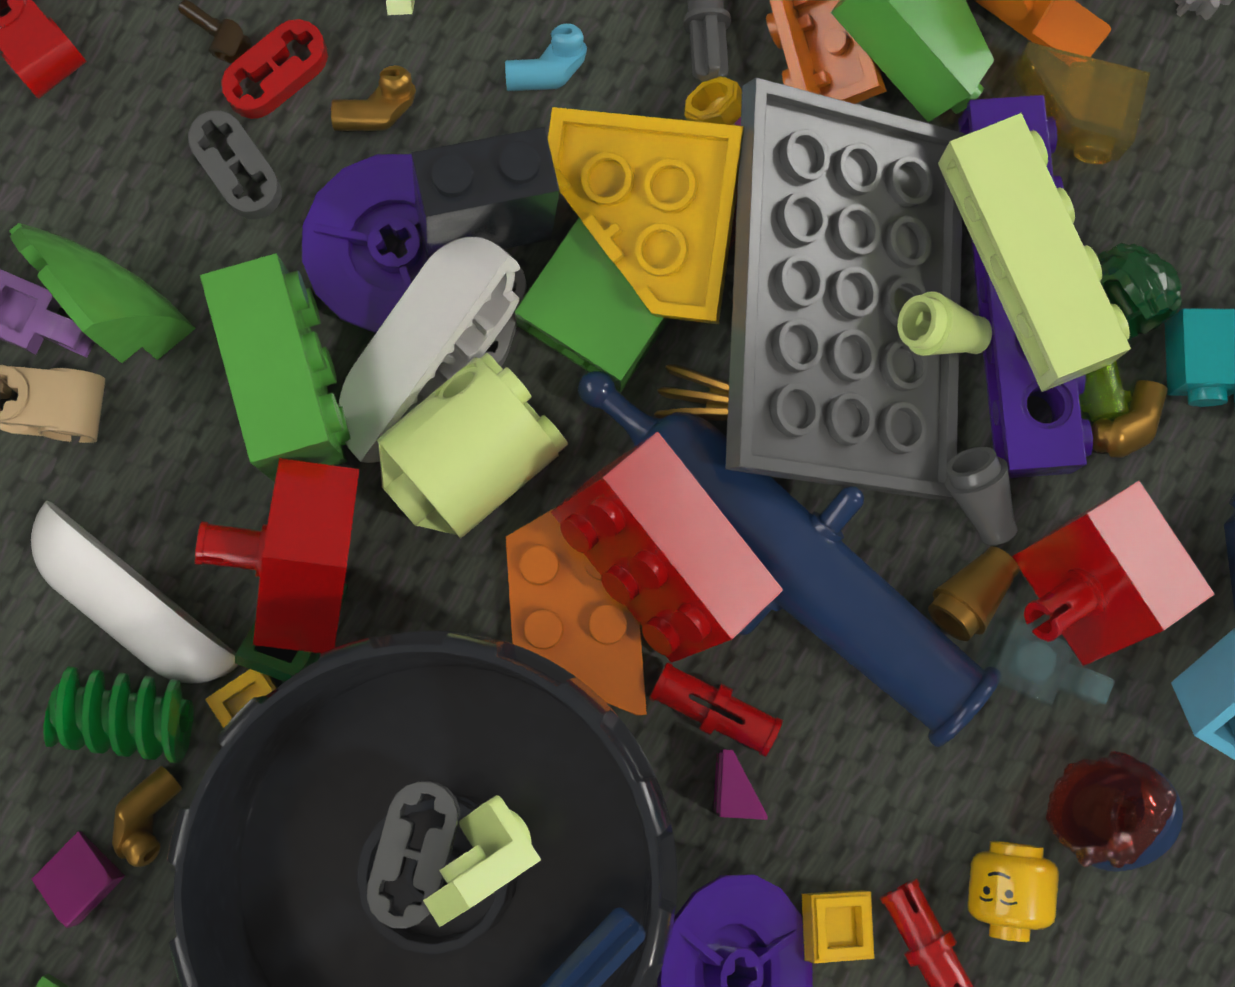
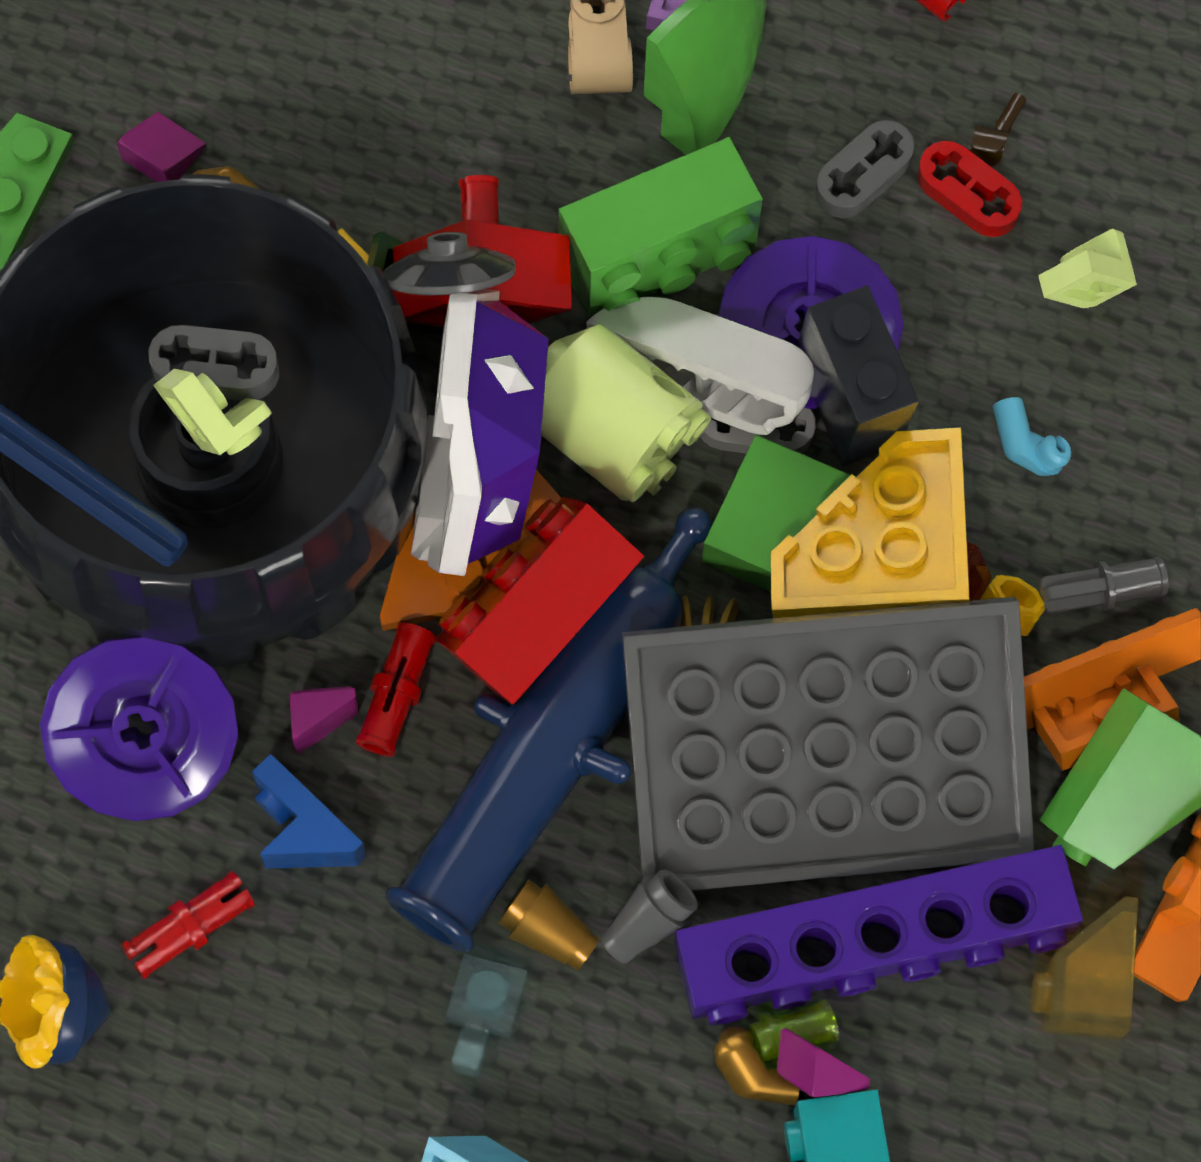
camera: 80 degrees right, 10 degrees down
(118, 717) = (316, 149): green piece -> none
(125, 602) = (424, 141): white brick -> none
(333, 579) = (449, 267): none -> dish
(381, 109) = (947, 292): pearl gold arm -> none
(501, 576) = (482, 434): none -> piece
(837, 926) = (199, 834): yellow tile -> none
(859, 807) = (314, 834): none -> blue slope
(939, 326) = (812, 843): yellowish green cone -> none
(1013, 890) = (254, 992): yellow head -> none
(1034, 252) = (901, 913): yellowish green brick -> none
(1110, 577) = (578, 1033): red brick -> none
(1114, 812) = (342, 1081): clear red hair -> none
(1140, 286) = (888, 1037): dark green piece -> none
(1153, 360) = (815, 1069): none -> magenta slope

